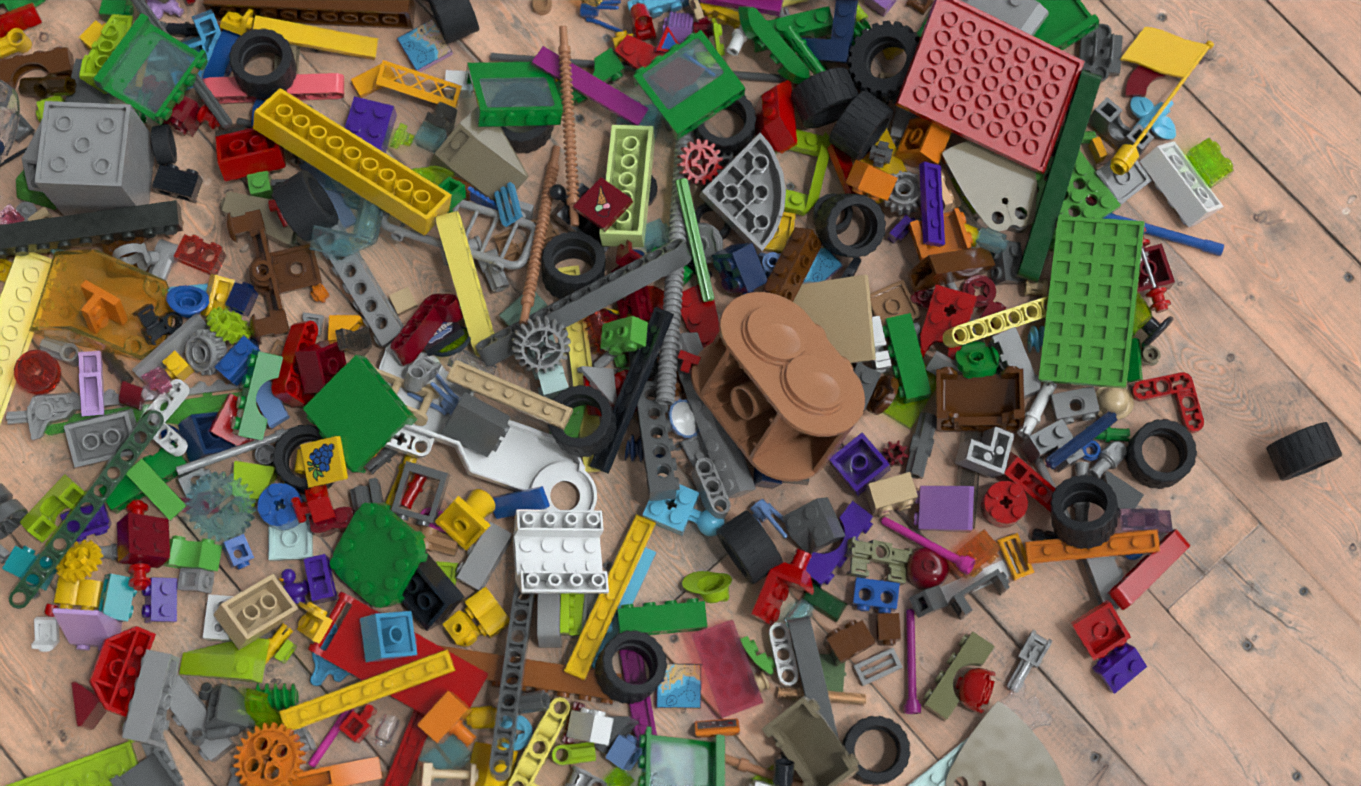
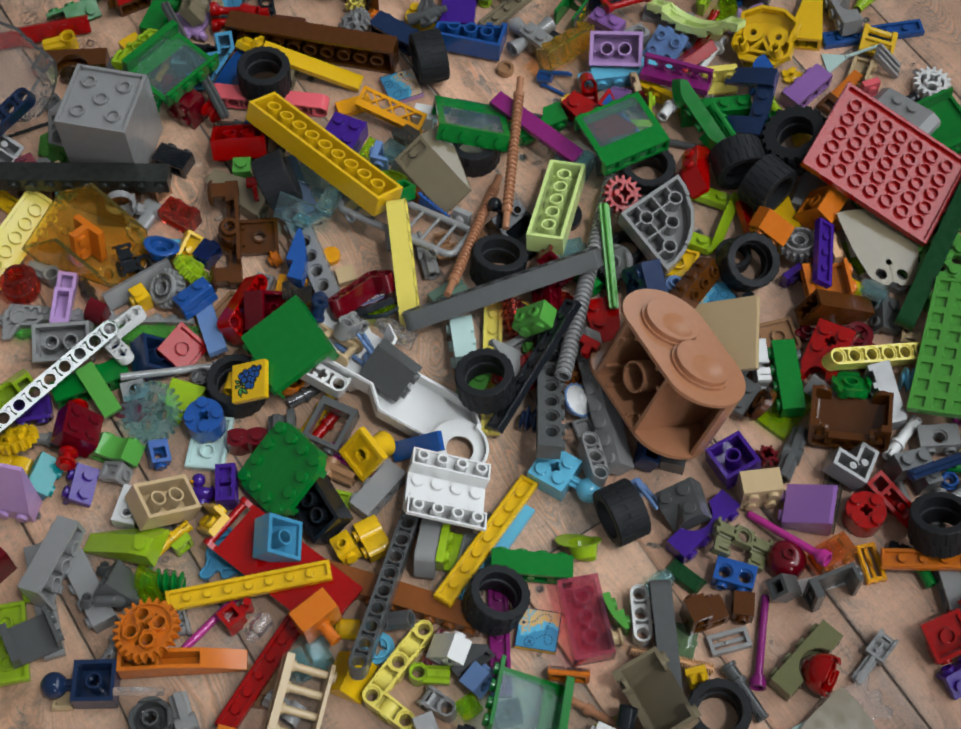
camera: 10 degrees right, 15 degrees down
(119, 667) = (28, 529): red wedge -> none
(157, 379) = (120, 305): clear pink plate -> none
(163, 144) = (168, 127): black tyre -> none
(261, 368) = (193, 346): arch -> none
(317, 504) = (237, 418): red brick -> none
(347, 298) = (297, 260): none -> blue slope
(382, 353) = (319, 303): none -> dark blue connector
(383, 278) = (332, 255): none -> light orange tile
(414, 152) = (377, 157): none -> medium blue bracket
(505, 207) = (447, 210): dark azure tile -> none
(509, 394) = (425, 347): tan tile -> none
(558, 349) = (454, 330): light grey gear -> none
(603, 204) = (532, 212): dark red tile -> none
(777, 583) = (642, 551): red plate -> none
(849, 711) = (696, 675): none -> yellow tile
(880, 154) = (783, 210): dark grey gear -> none
(892, 710) = (733, 674): none -> dark grey pin
(1076, 566) = (927, 578): none -> green pin

